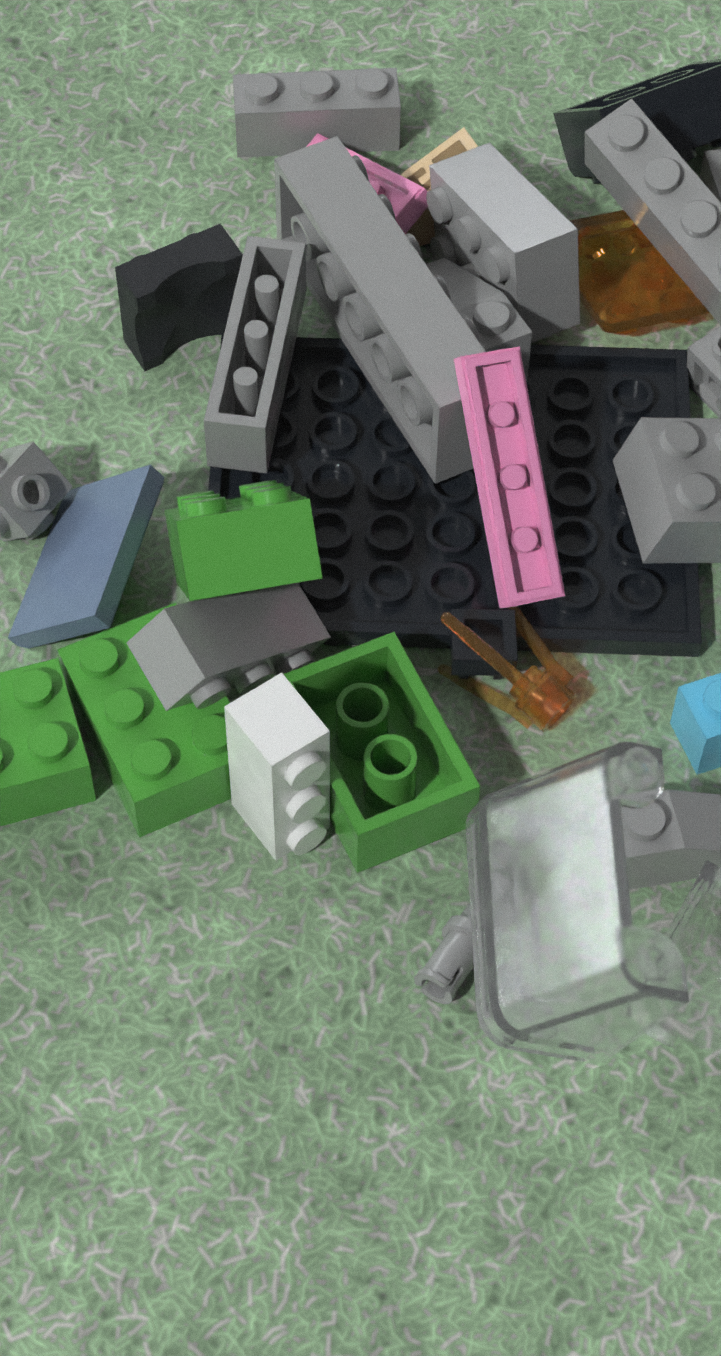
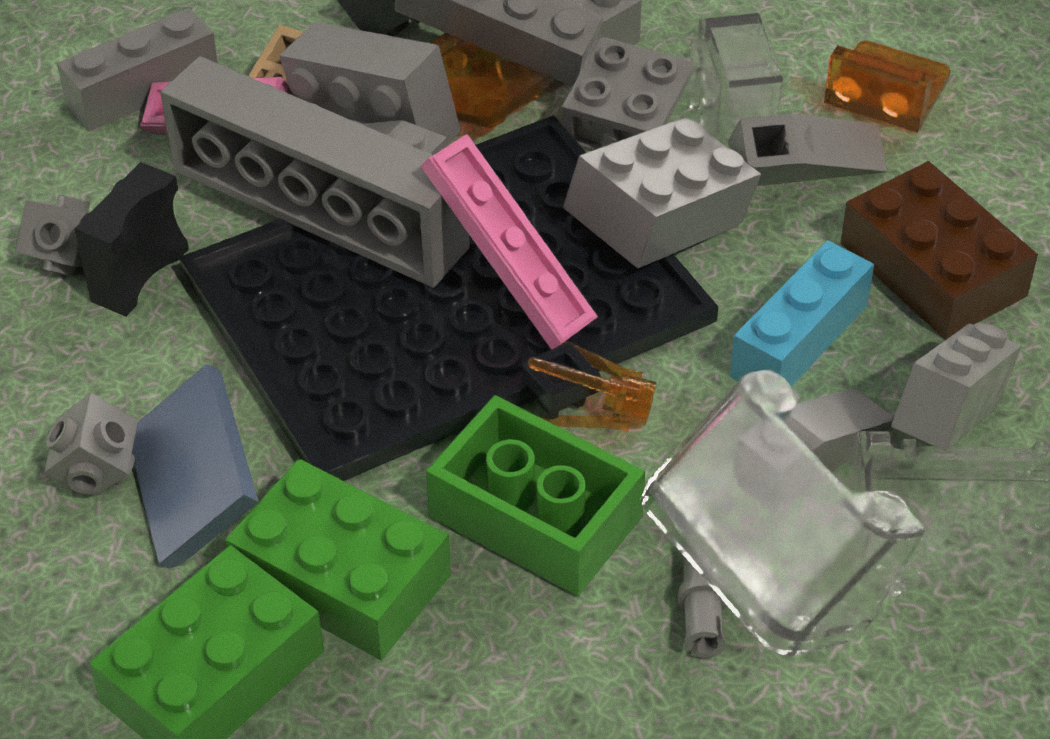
camera: 30 degrees left, 10 degrees down
(115, 243) = (50, 233): none -> light grey brick
(227, 643) = (375, 459): light grey brick -> none
(242, 541) = (336, 374): bright green brick -> none
(256, 355) = (234, 250): light grey brick -> none
(279, 767) = (483, 531): white brick -> none

